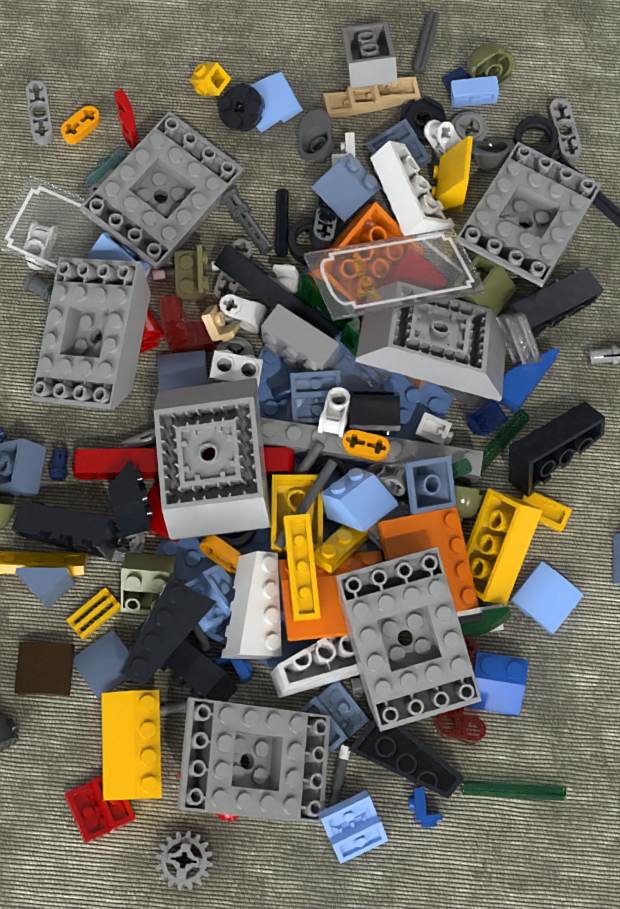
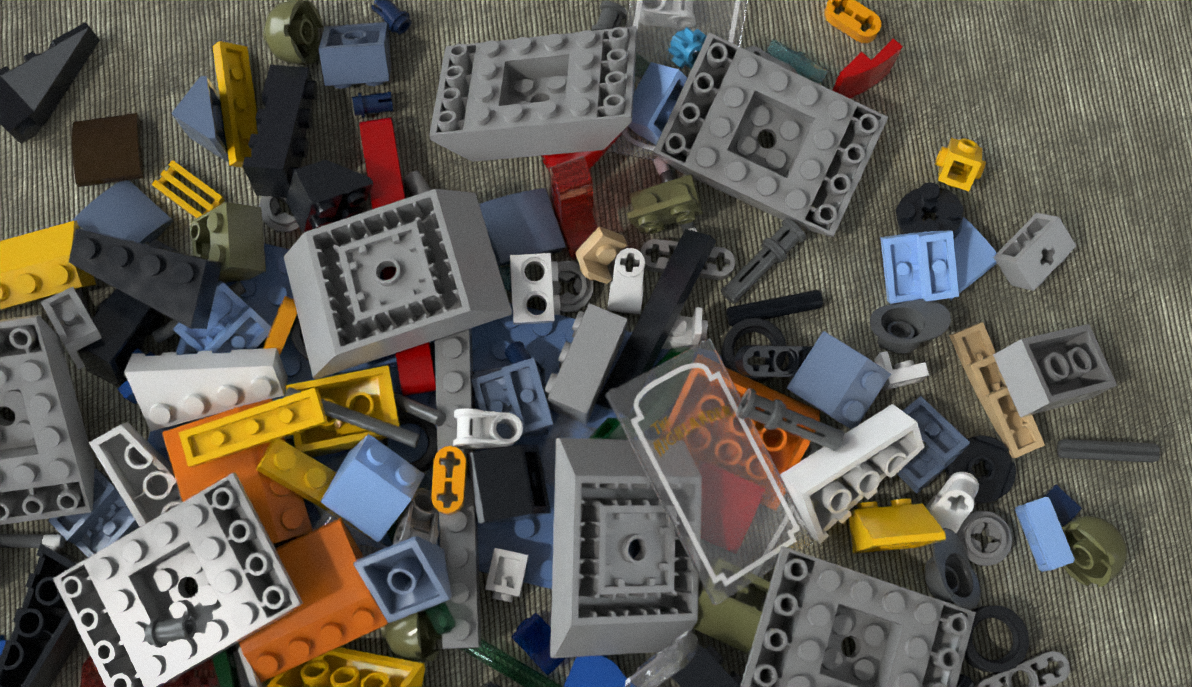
camera: 75 degrees right, 5 degrees up
(82, 229) = (686, 47): none -> dark azure gear
(175, 699) = (71, 322): none -> light grey panel
(277, 121) = (919, 266): none -> light blue slope
(283, 49) = (1035, 251): none -> light grey brick
(385, 198) = (774, 414): none -> dark grey pin
(438, 641) = (162, 632): none -> dark grey pin

